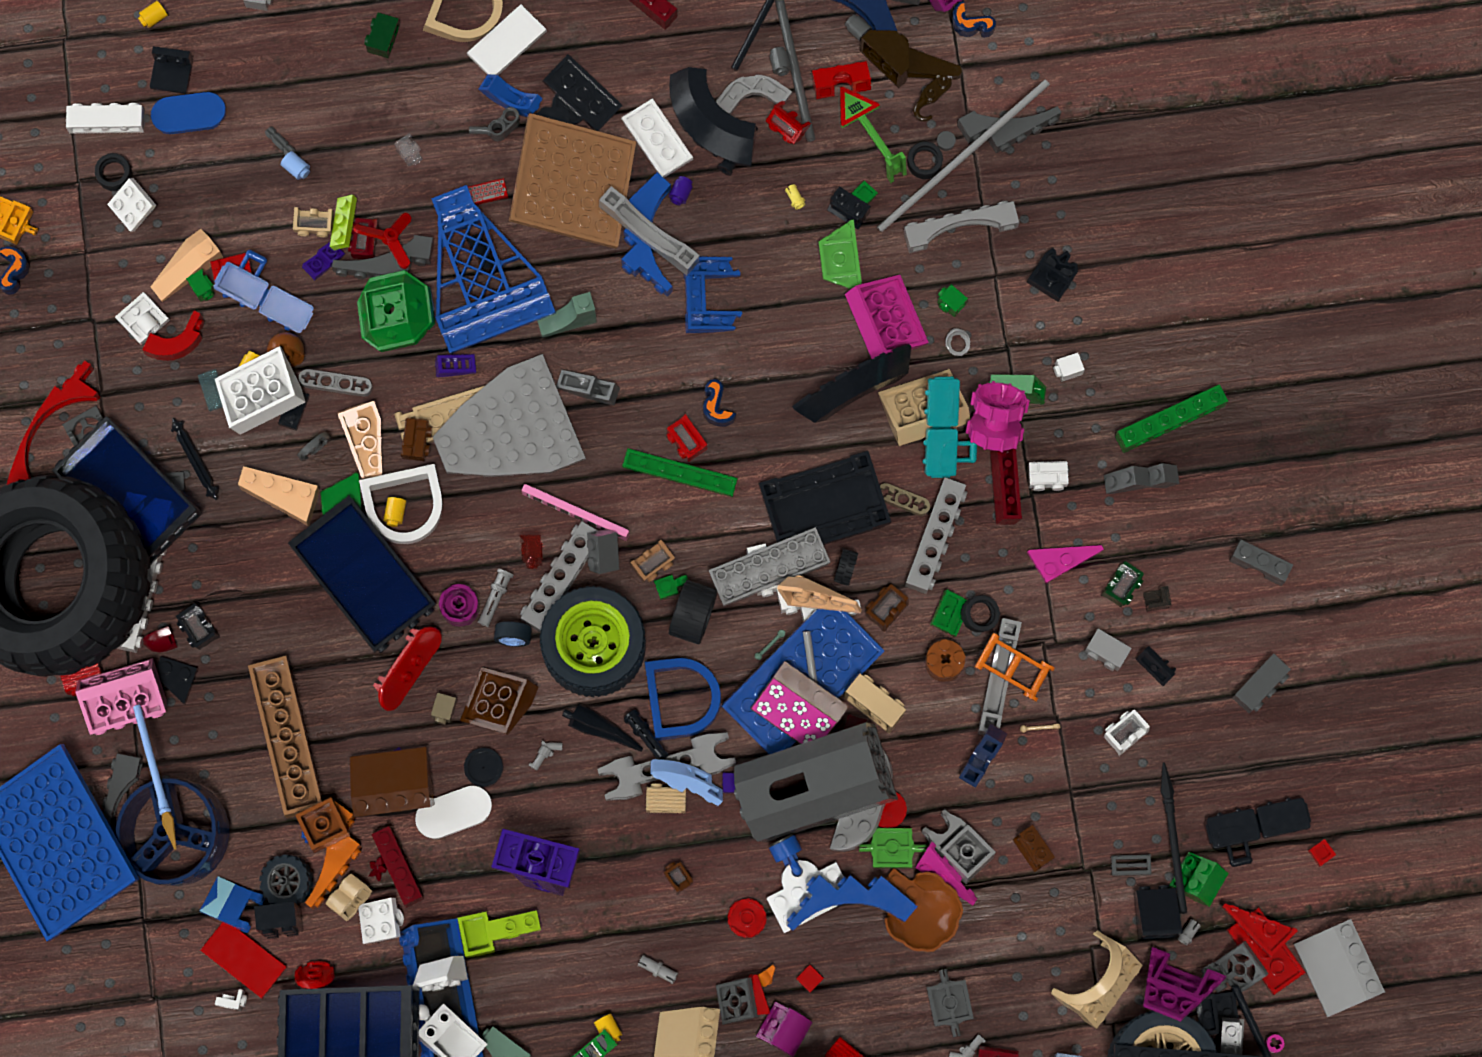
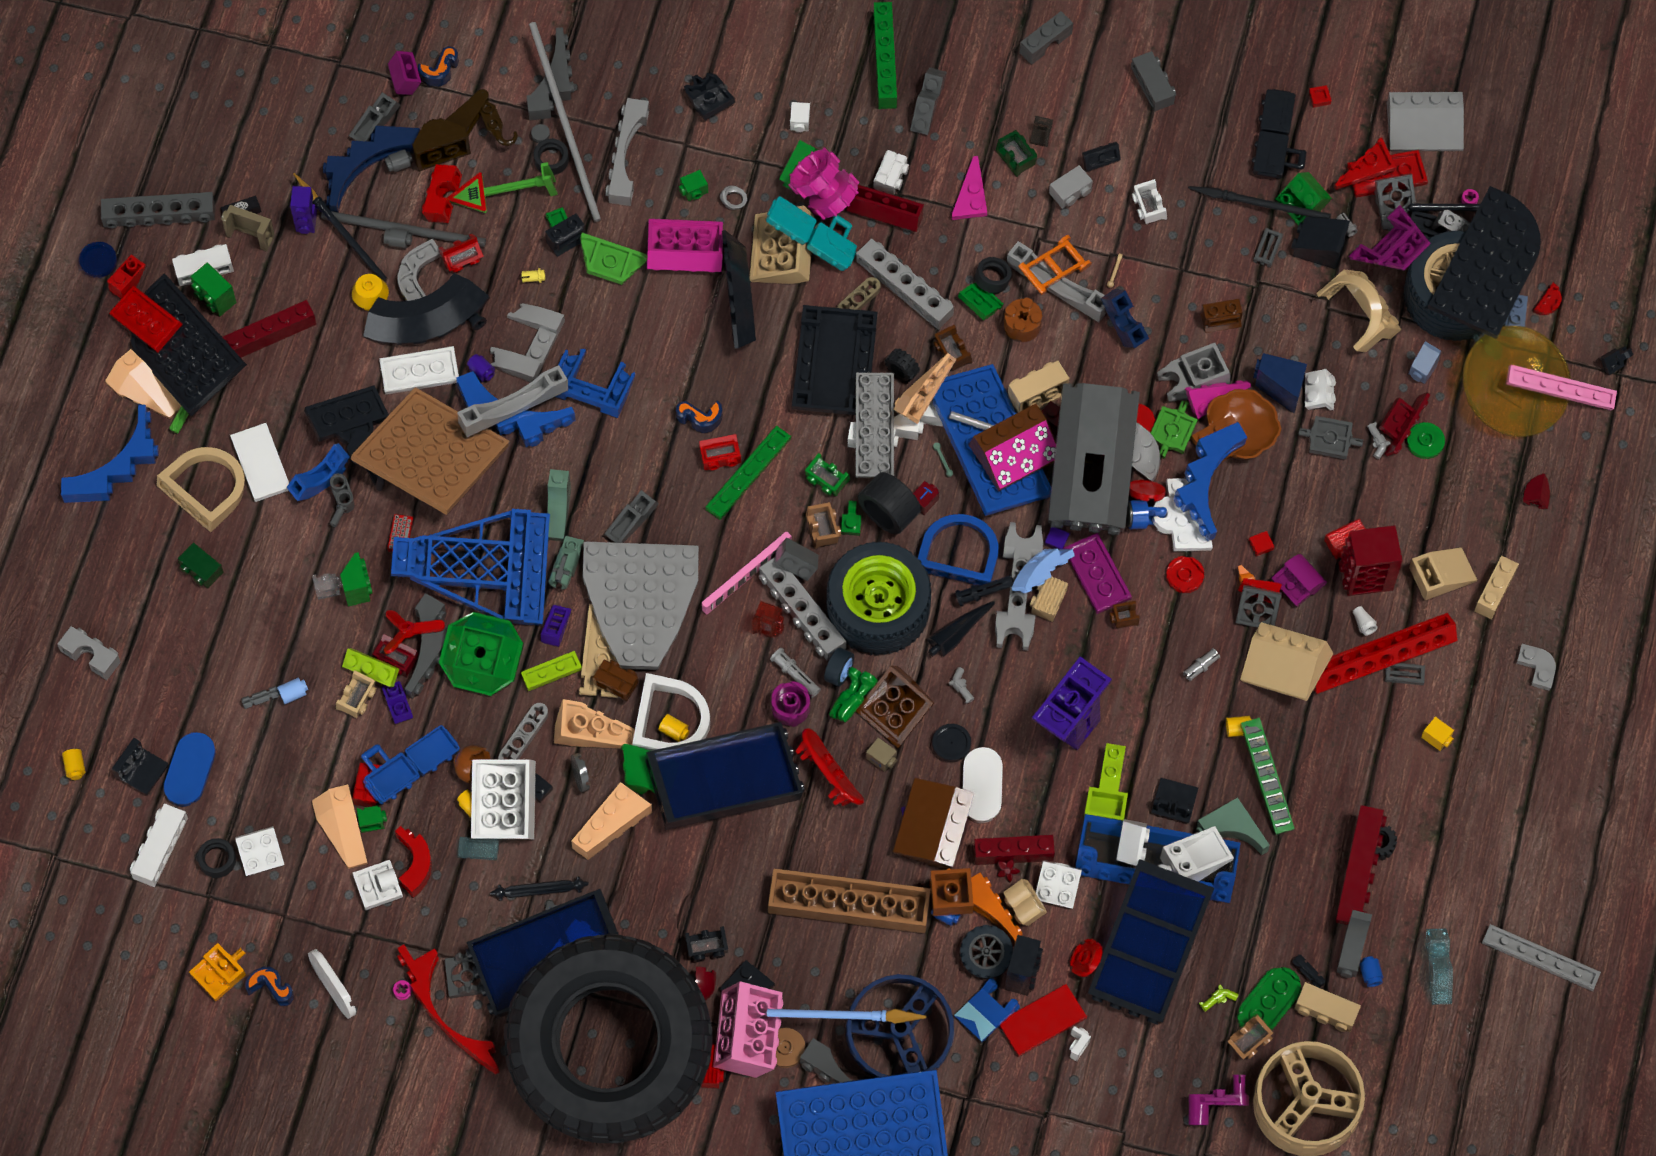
camera: 65 degrees left, 10 degrees down
(30, 319) = (332, 983): none -> white tile
(51, 376) = (403, 984): none -> dark pink bush
(122, 744) = (794, 1045): none -> medium nougat piece
(407, 380) = (551, 670): none -> lime plate
(419, 172) = (356, 581): none -> green slope
(486, 657) = (852, 697): none -> green piece
(510, 997) = (1174, 800): none -> black hinge
(518, 347) = (566, 562): none -> sand green plate
(705, 544) = (826, 476): none -> green window
(711, 836) = (1098, 573): none -> magenta tile
(716, 60) = (368, 289): none -> yellow cone
(721, 643) = (927, 496): none -> dark red brick
(724, 234) = (529, 366): none -> light grey wedge
(814, 847) = (1146, 489): none -> red tile
(987, 931) = (1280, 379): none -> dark blue slope
(996, 973) = (1319, 389): none -> white bracket

